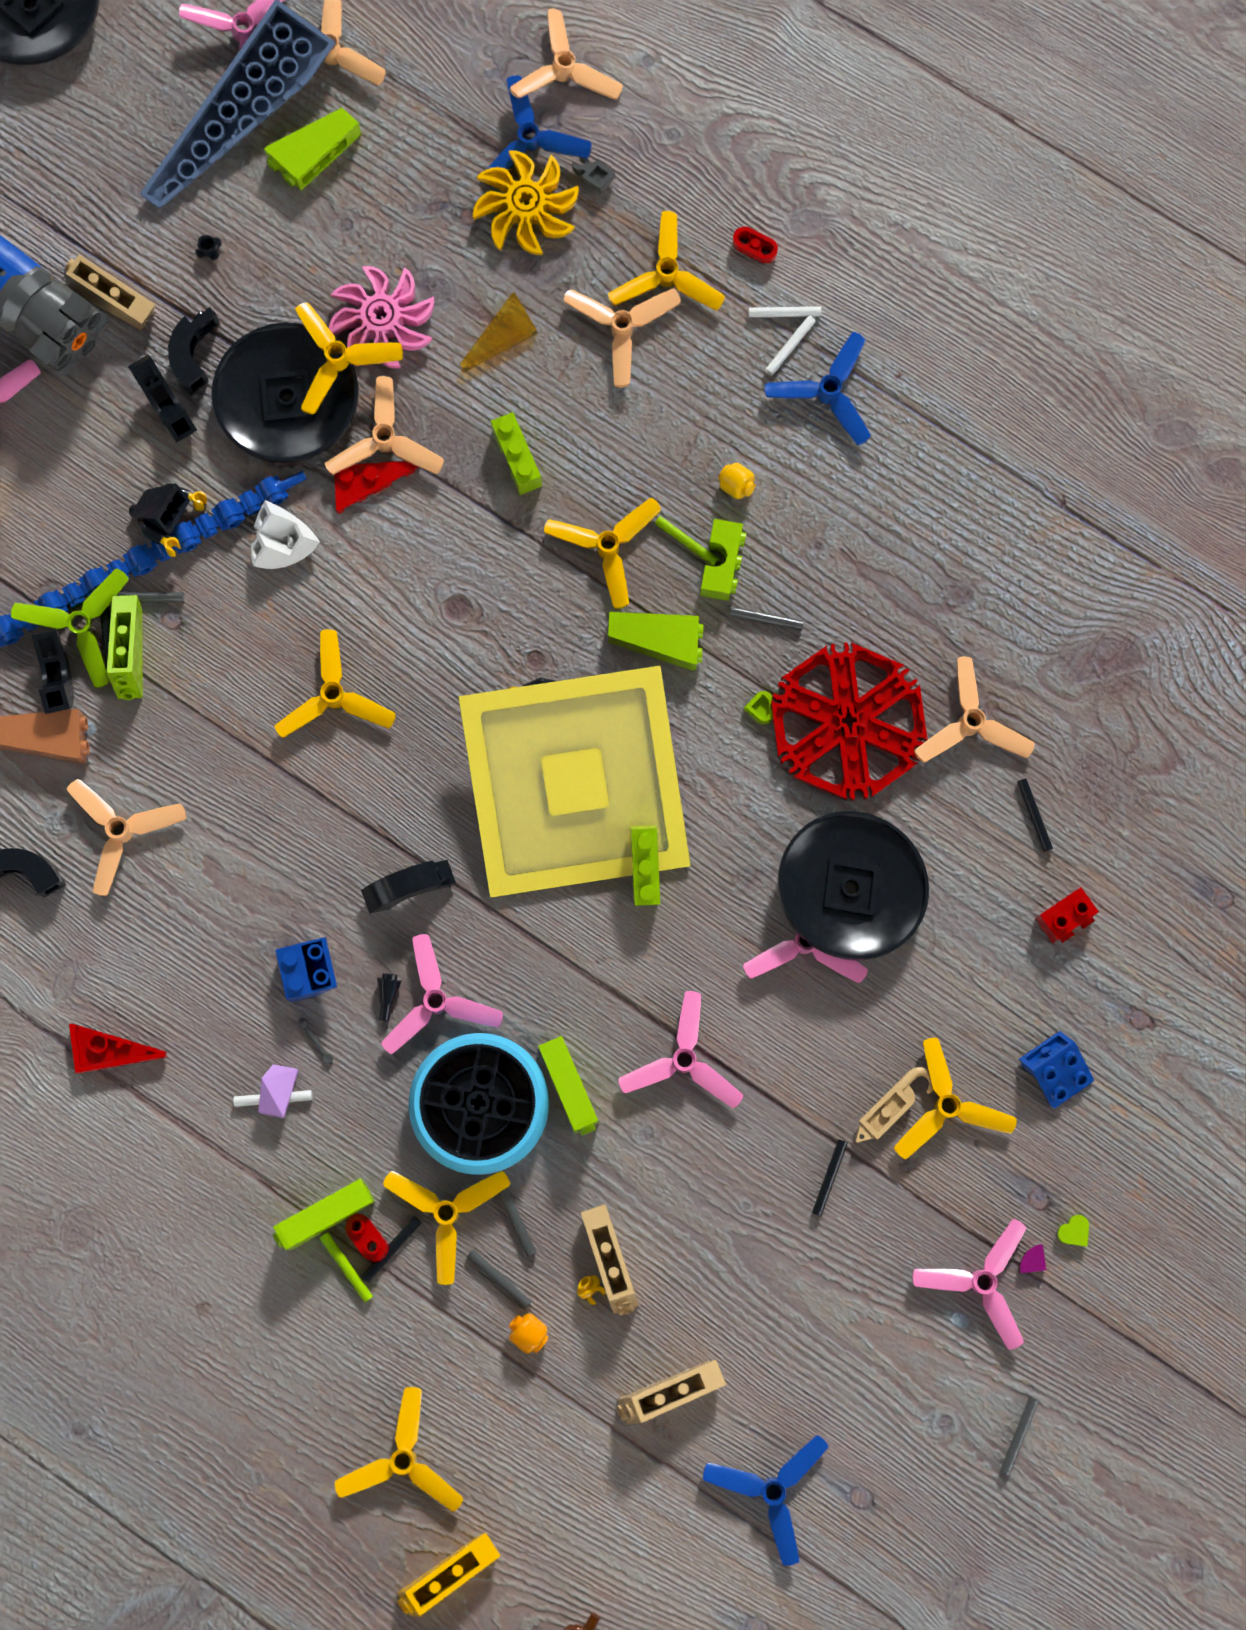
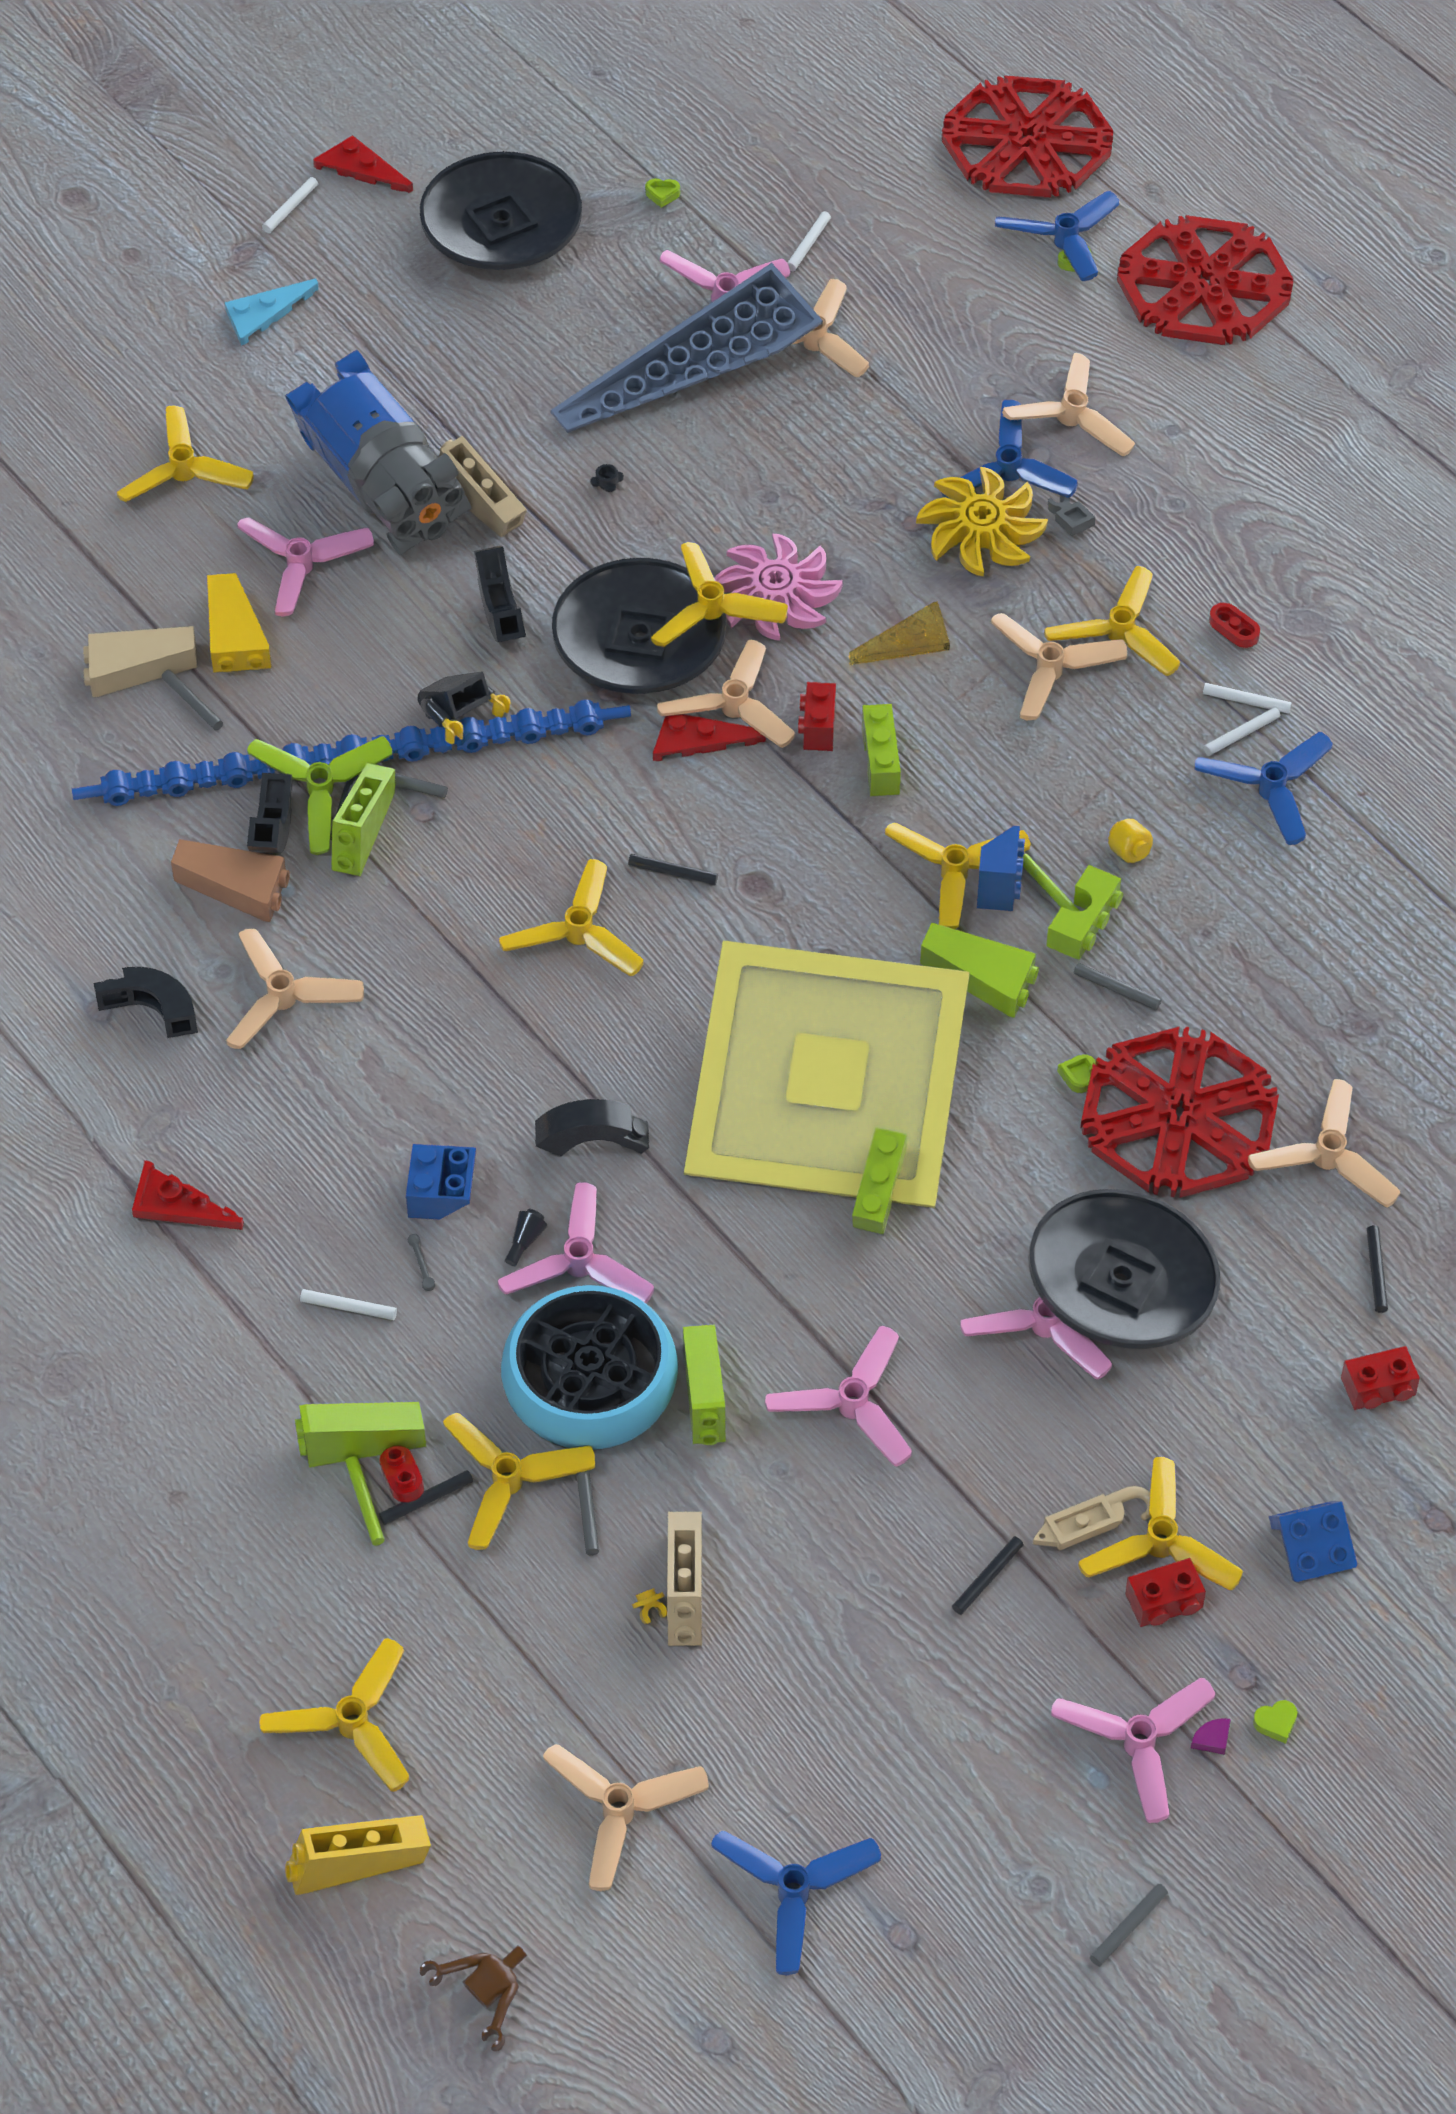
camera: 20 degrees right, 25 degrees down
(182, 347) = (543, 556): black arch -> none
(276, 1090) = (355, 1292): lavender slope -> none
(280, 538) = (578, 762): white brick -> none
(312, 148) = (760, 415): lime slope -> none
(388, 615) = (673, 869): none -> black bar
(457, 434) = (819, 716): none -> red brick
(499, 1279) = (543, 1566): dark grey bar -> none
(528, 1333) = (556, 1626): light orange head -> none
(605, 1459) = (642, 1797): none -> light nougat piece
(647, 547) = (1000, 870): none -> blue slope
(670, 1393) = (703, 1737): tan slope -> none
(965, 1154) = (1165, 1593): none -> red brick

